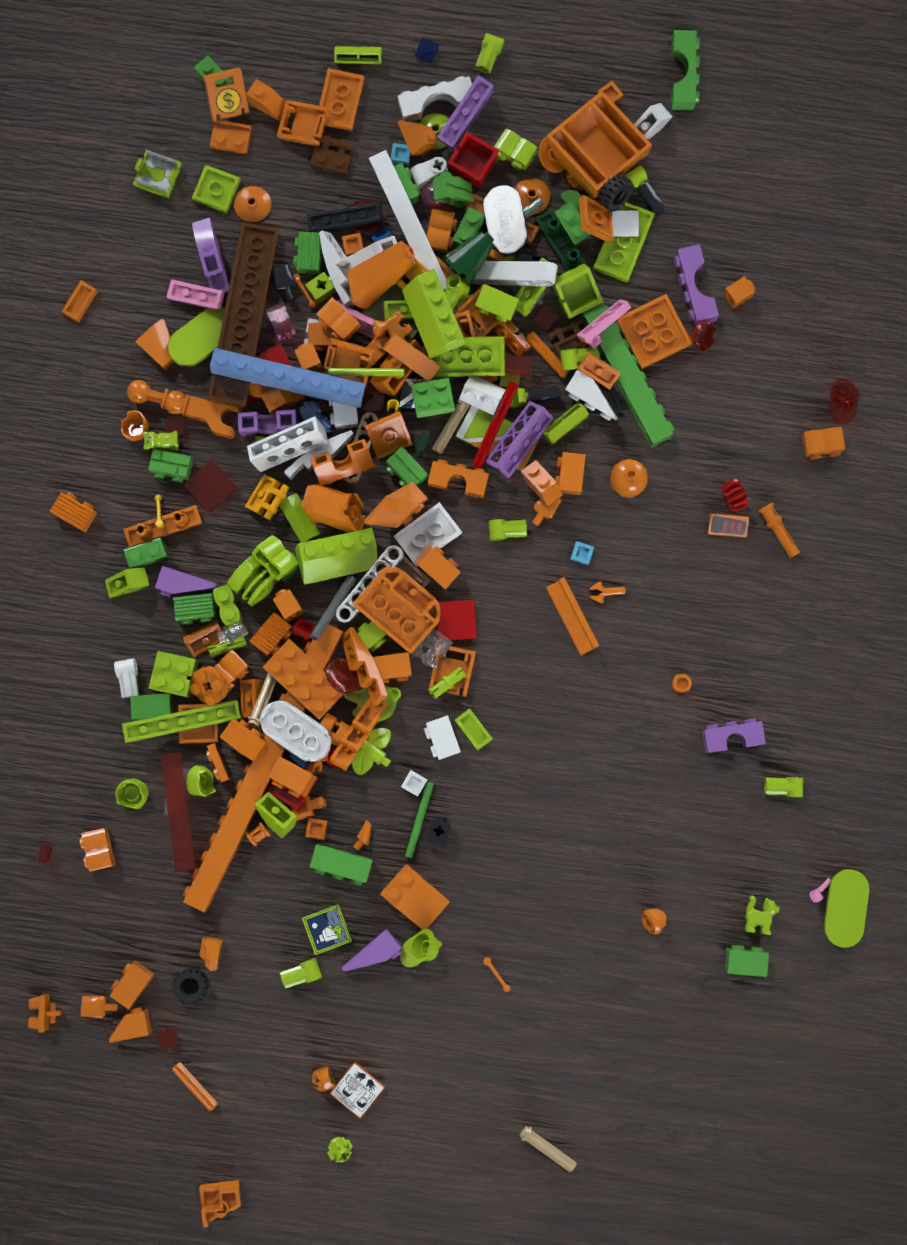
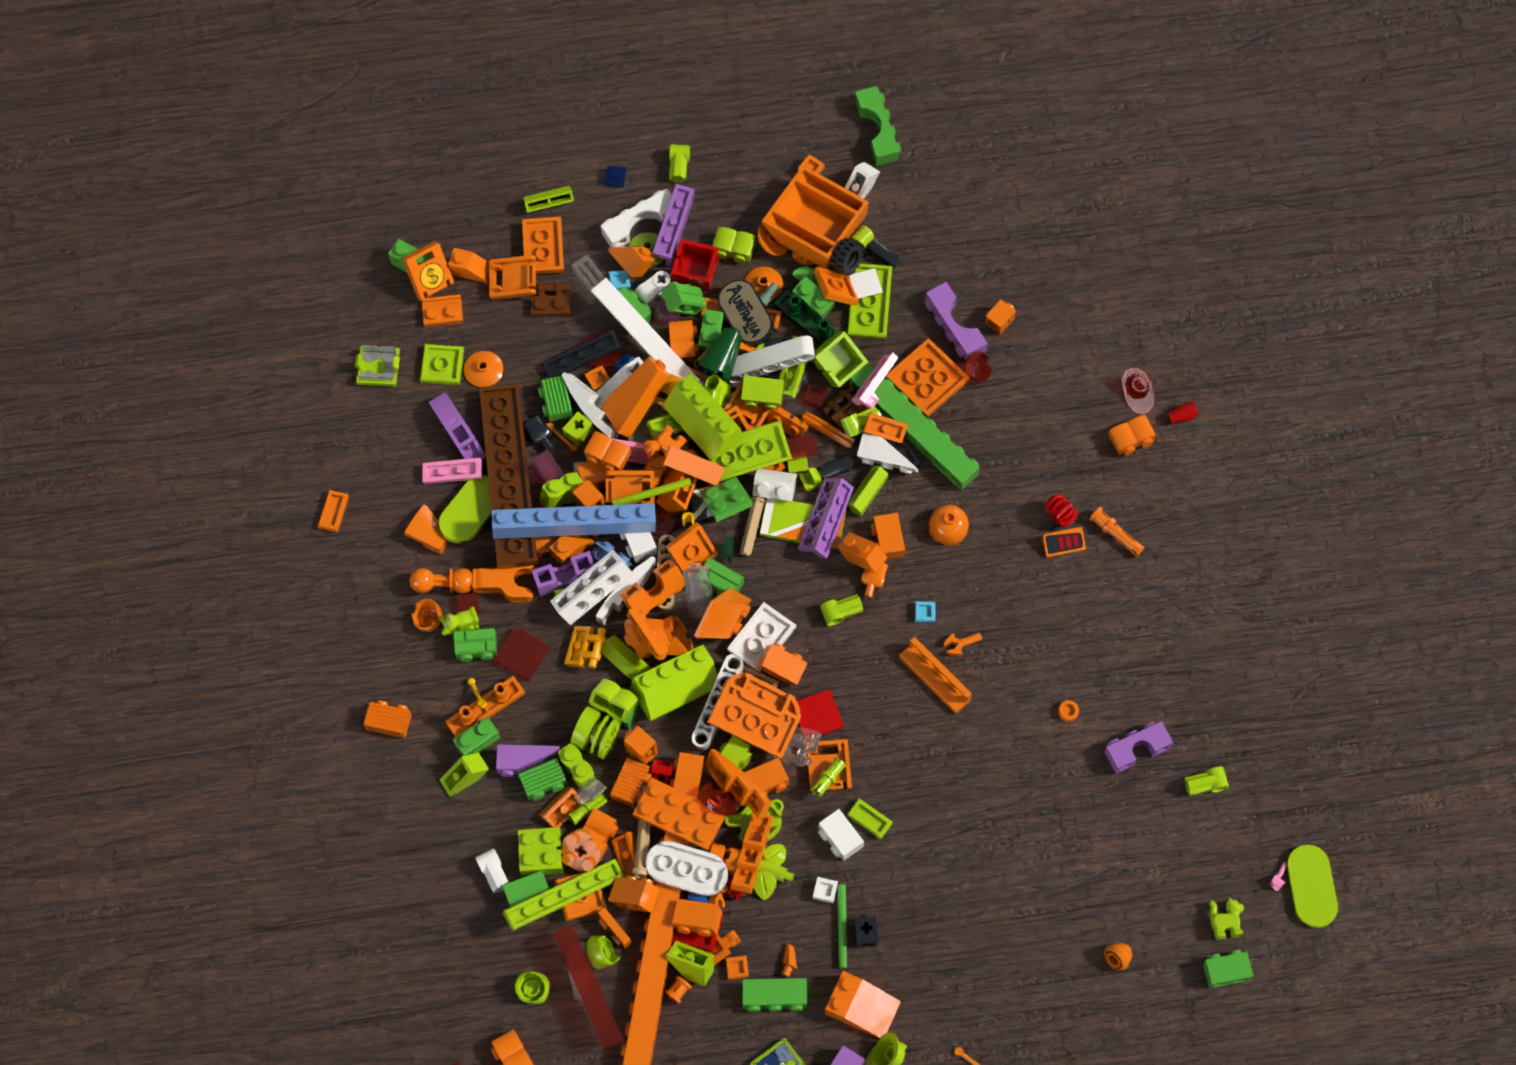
camera: 15 degrees left, 15 degrees down
(283, 344) = (559, 492): none -> lime brick
(322, 507) = (647, 633): none -> orange plate
(332, 608) = (686, 736): dark grey piece -> none
(370, 126) = (581, 263): none -> clear tile
(382, 474) = (697, 589): none -> clear brick
(442, 473) = (759, 571): orange arch -> none
(495, 425) = (796, 512): red axle -> none
(878, 434) = (1184, 413): none -> red cone

